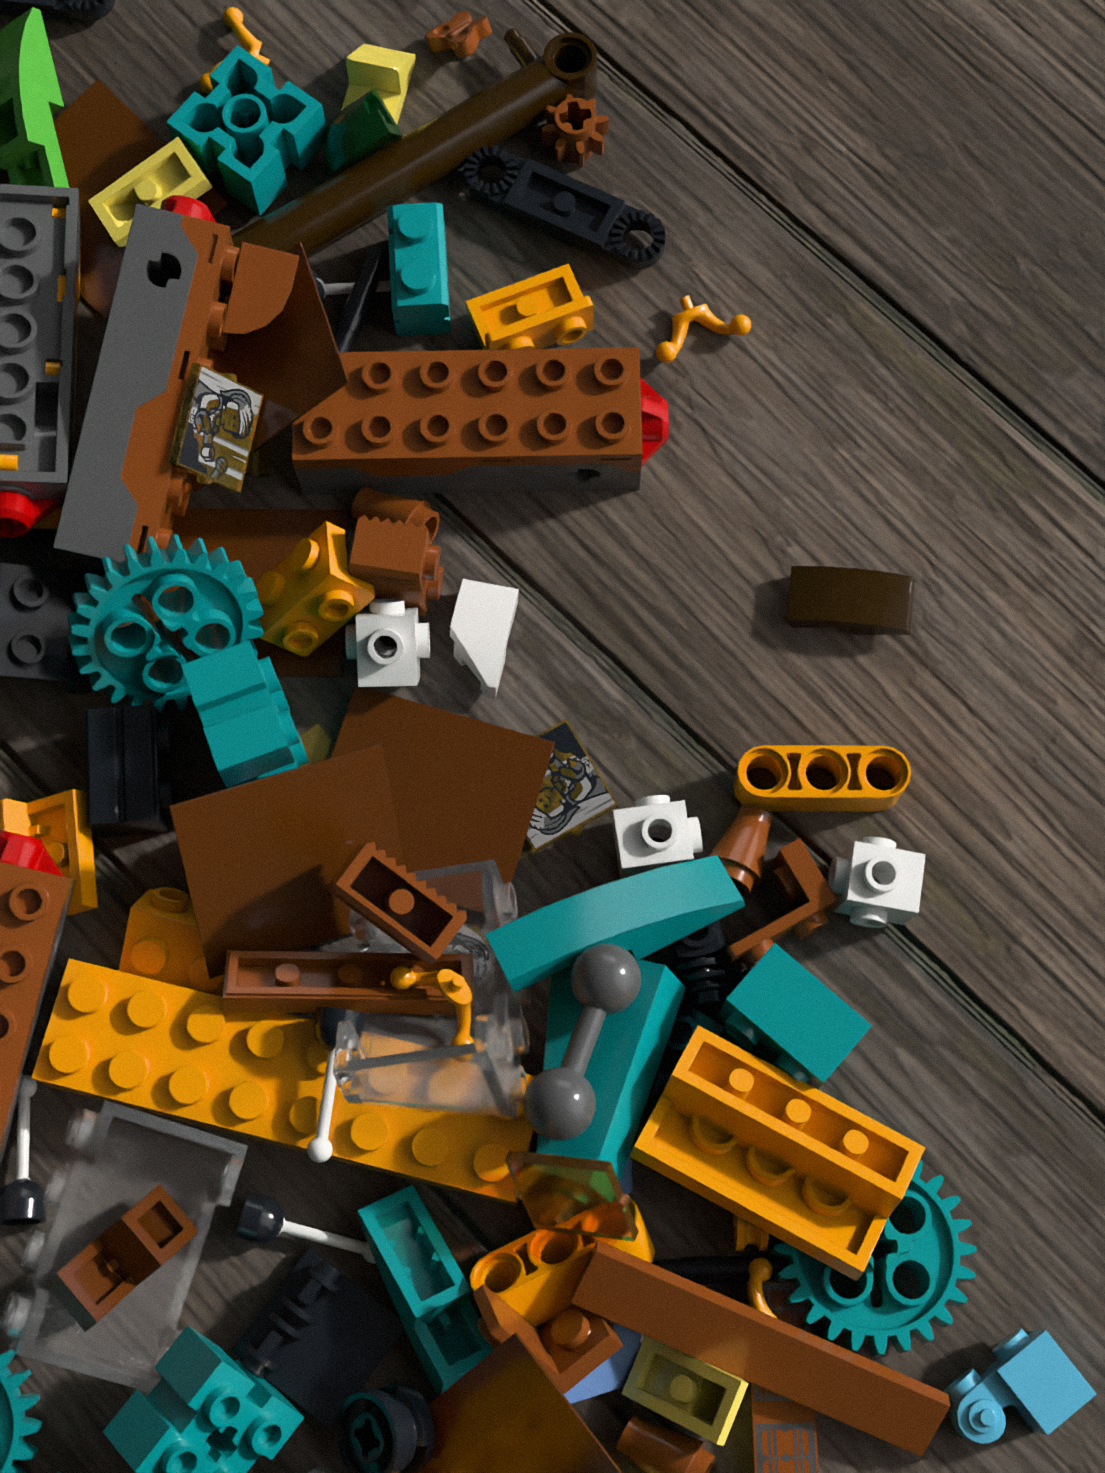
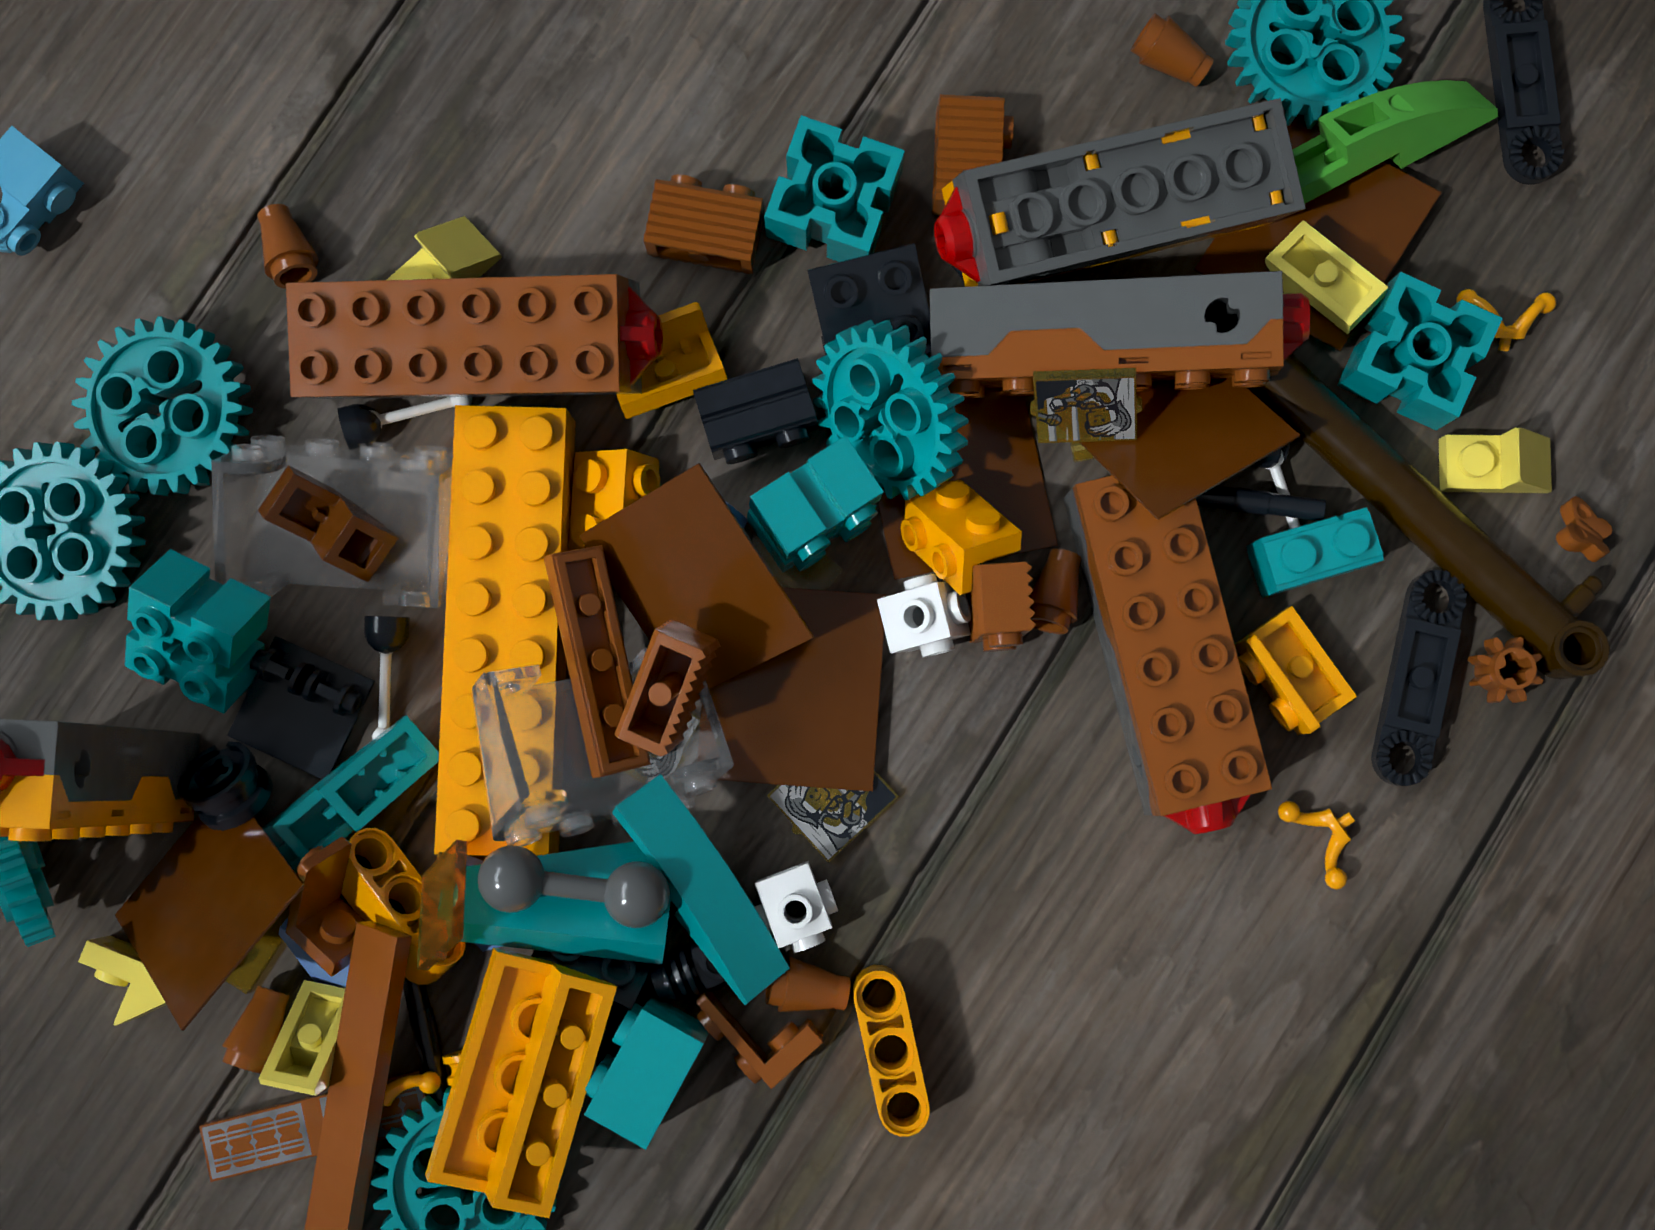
camera: 75 degrees right, 10 degrees up
(259, 288) = (1237, 409): dark orange brick -> none
(325, 1033) = (548, 654): hinge -> none
(358, 133) = (1445, 458): dark green brick -> none
(451, 987) = (600, 755): light orange piece -> none
(482, 630) = (965, 699): white slope -> none
(851, 598) = (1075, 1043): dark brown slope -> none
(877, 882) = (799, 1122): white brick -> none

